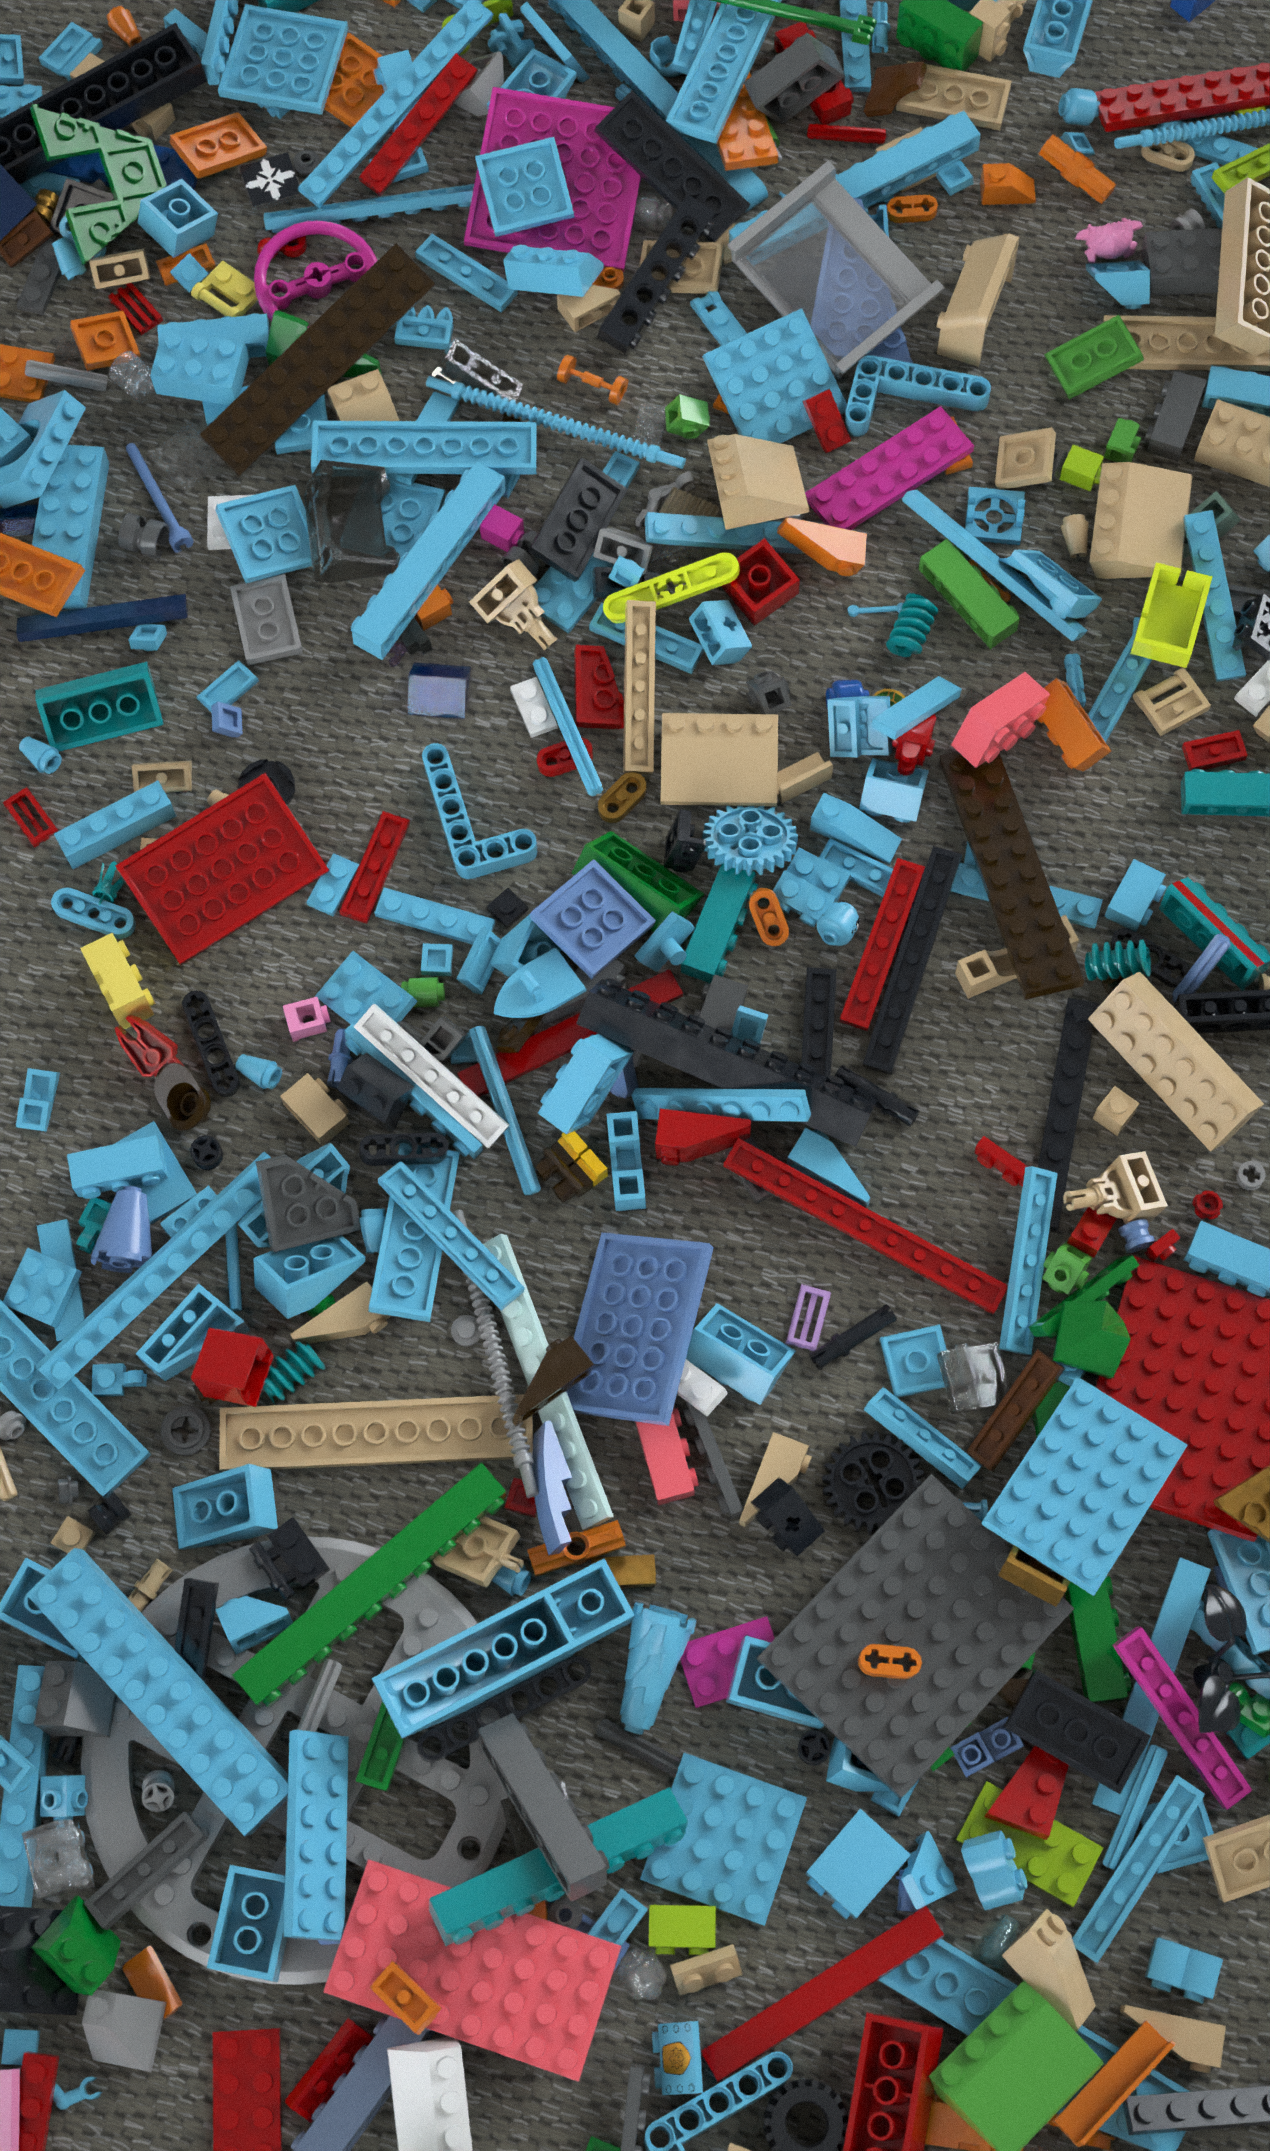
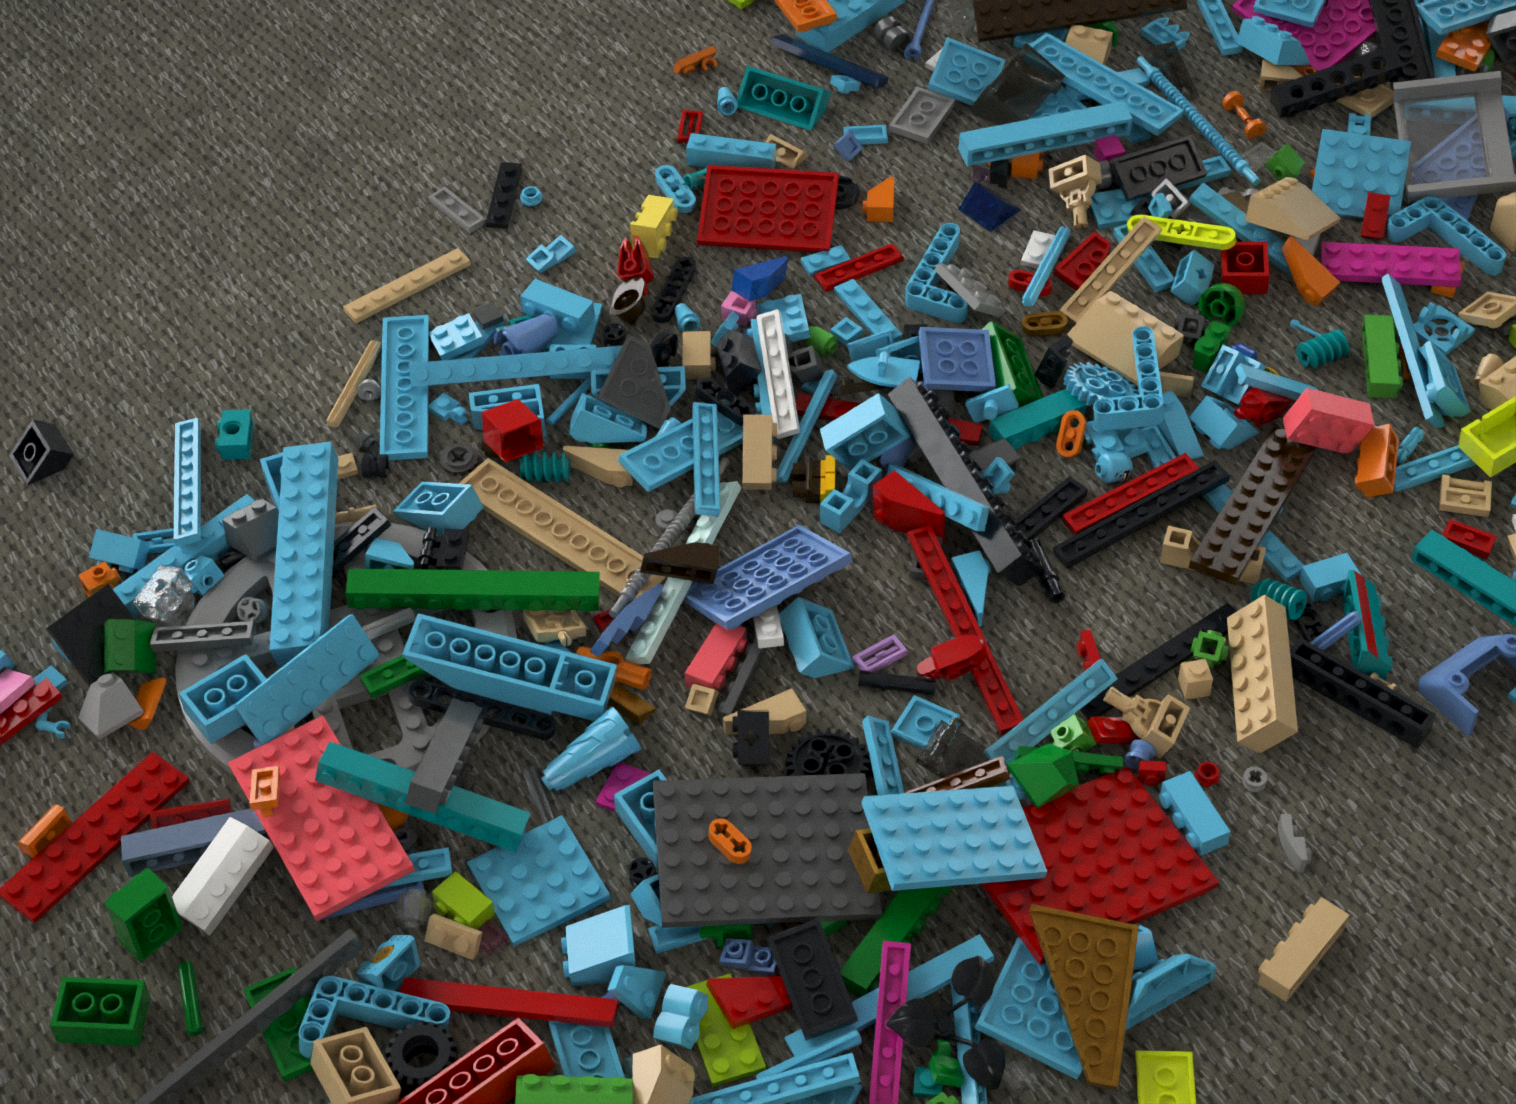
camera: 40 degrees right, 20 degrees down
(50, 1233) = (487, 315): none -> dark grey tile
(280, 1133) = (663, 347): none -> black tile
(299, 975) = (759, 279): none -> blue slope
(320, 1058) = (729, 323): none -> medium azure plate
(327, 768) = (880, 202): none -> orange slope
(493, 1184) = (759, 452): none -> tan brick
(519, 814) = (970, 290): none -> light grey plate
(693, 1511) = (702, 699): none -> tan plate
(735, 1933) = (491, 937): none -> clear pink tile
(782, 643) = (1223, 301): none -> green cylinder
(800, 811) = (1140, 409): none -> medium azure beam
(807, 705) = (1209, 345): none -> green brick
(891, 1274) = (954, 658): none -> red hinge
(1112, 1073) = (1210, 640): none -> bright green brick

